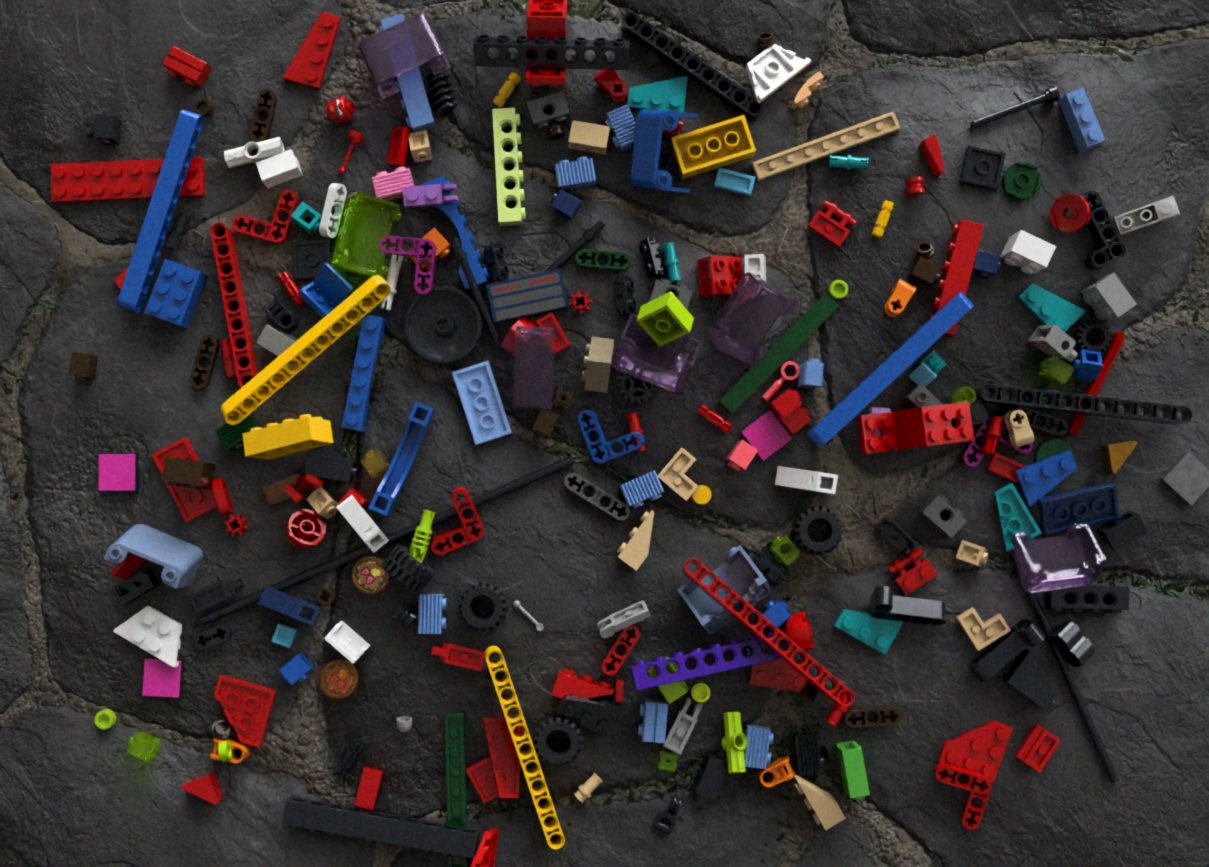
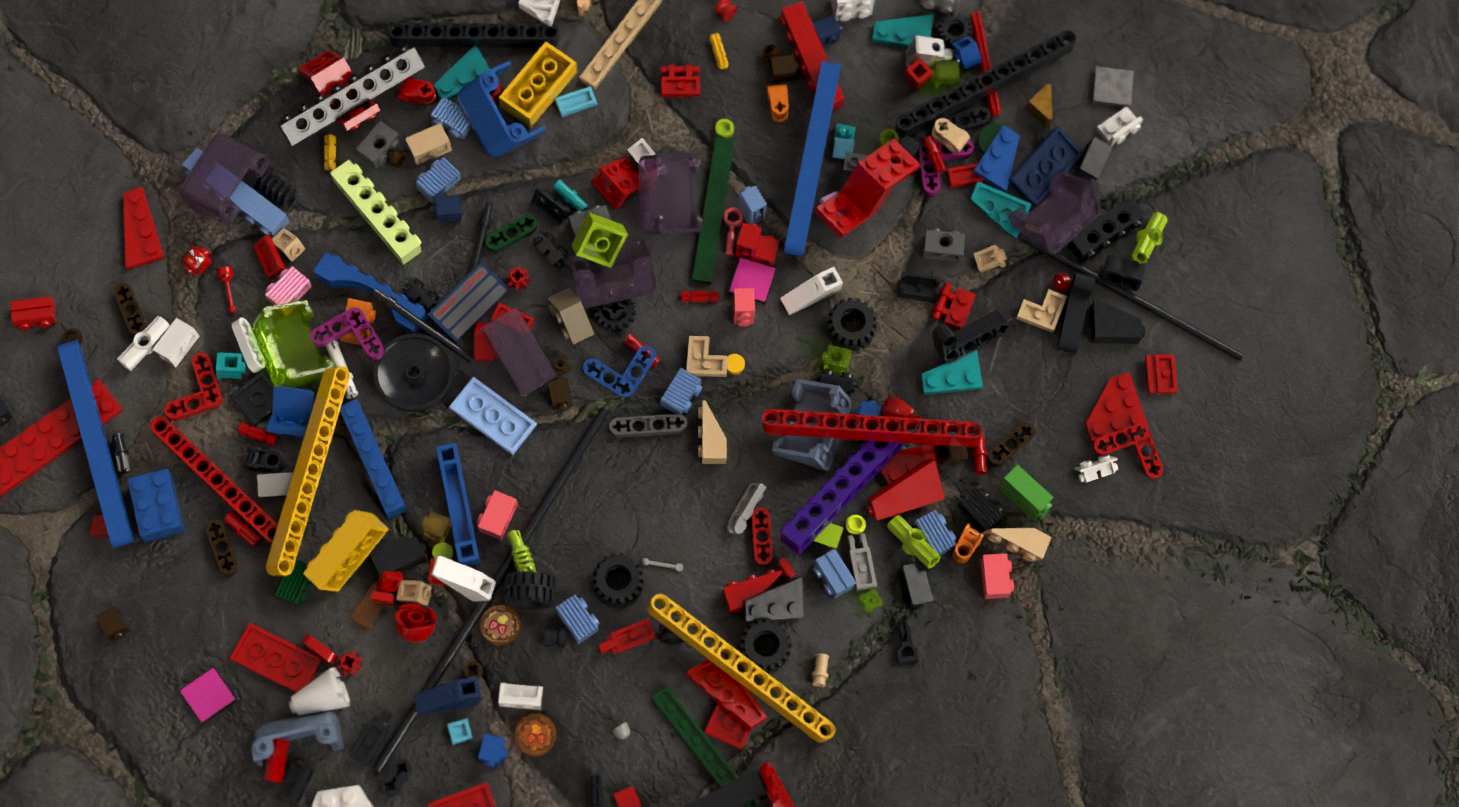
camera: 45 degrees left, 15 degrees down
(190, 472) = (276, 642): dark brown piece -> none
(198, 535) = (321, 695): none -> white cone
(367, 486) = (442, 549): none -> lime tile
(428, 195) = (325, 274): medium lavender hinge -> none
(428, 486) = (497, 515): none -> coral brick
(465, 529) = (555, 529): red beam -> none
(759, 699) = (909, 491): none -> red slope
(779, 814) = (995, 576): none -> coral brick
(848, 162) = (658, 26): teal pin -> none
(918, 782) = (1103, 465): none -> white hinge
(1015, 615) = (1061, 282): none -> red plate
(1032, 355) = (918, 74): none -> red brick
(1117, 631) = (1149, 237): none -> lime piece
(1167, 515) = (1118, 126): none -> white bracket

